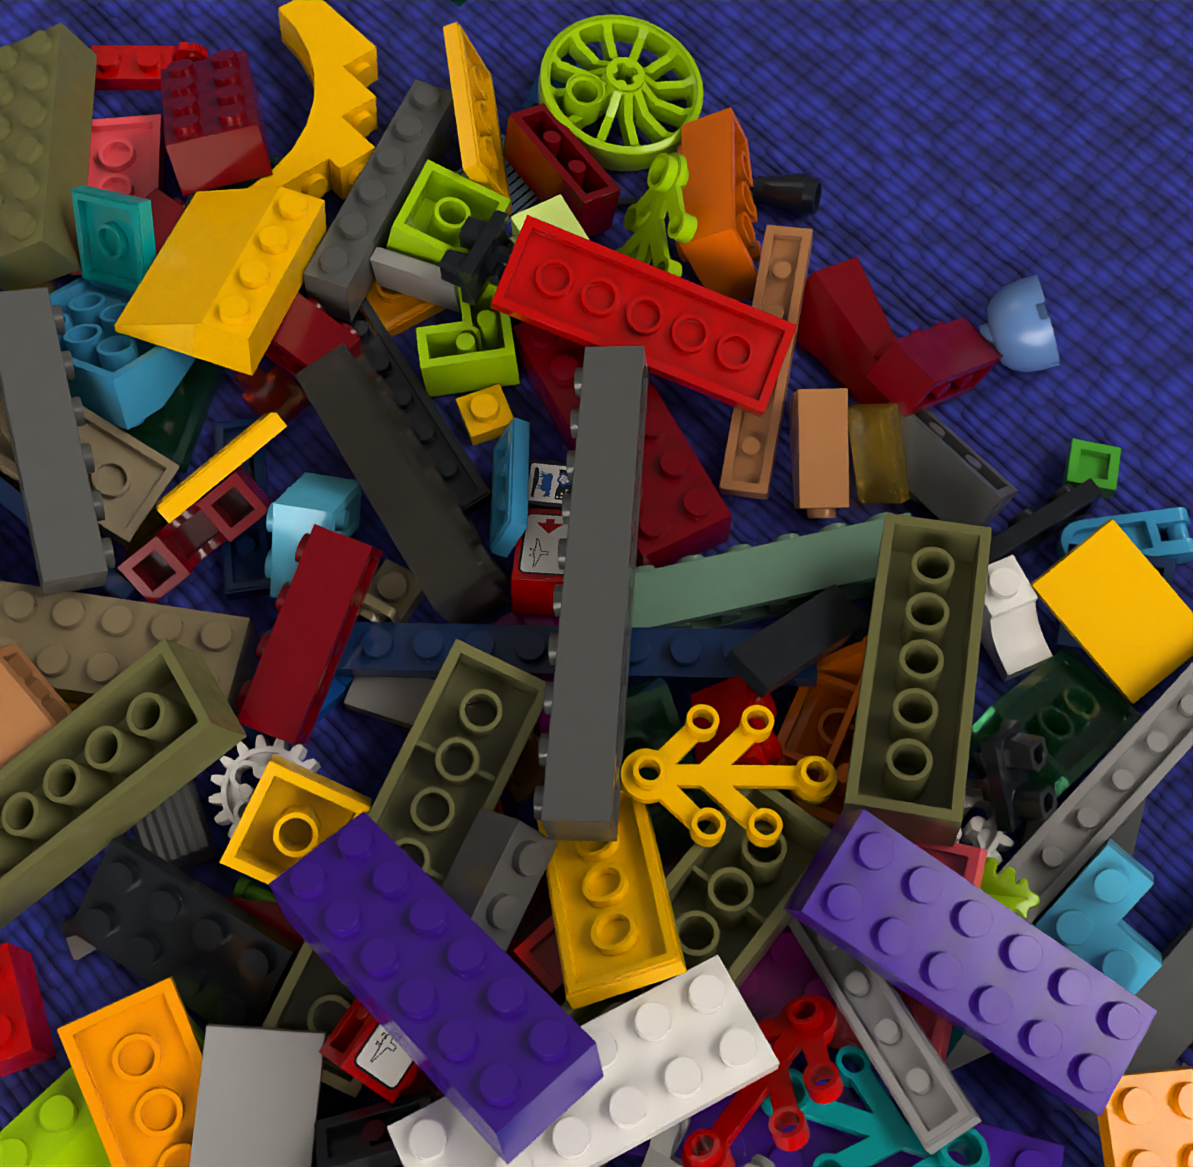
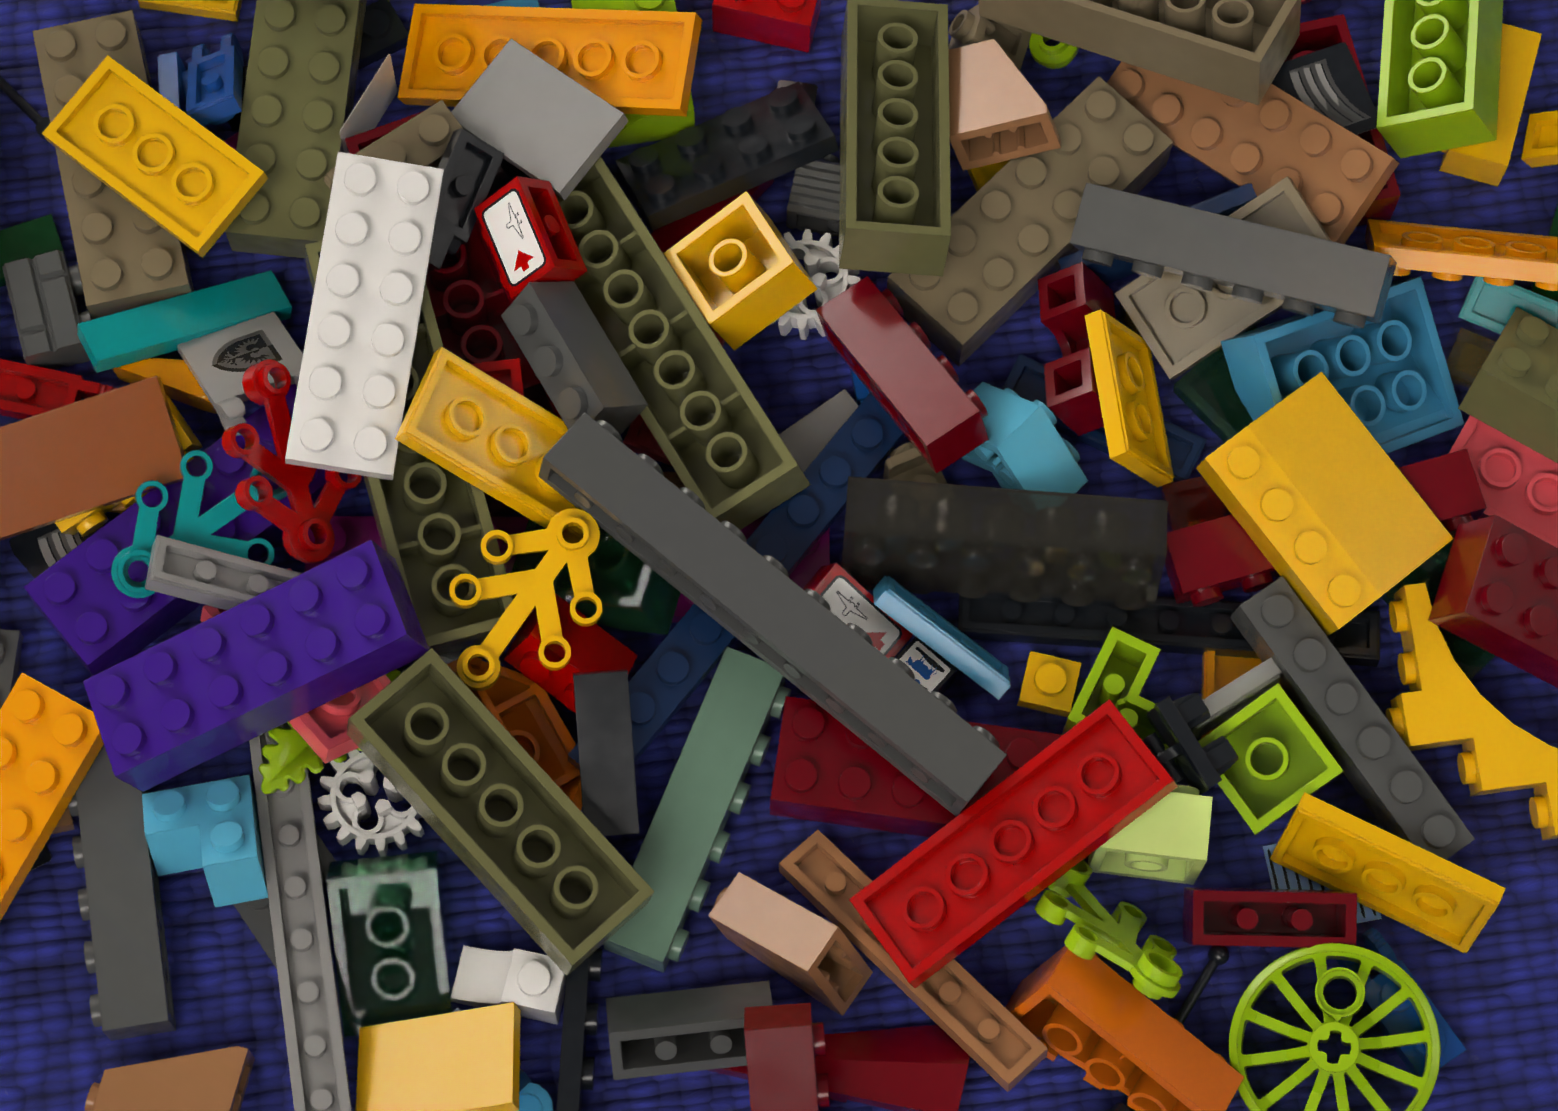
camera: 120 degrees right, 5 degrees up
(113, 236) = (1449, 438): teal tile -> none
(439, 986) = (521, 257): dark purple brick -> none
(878, 453) = (739, 978): clear yellow tile -> none
(1005, 779) = (367, 841): black hips -> none

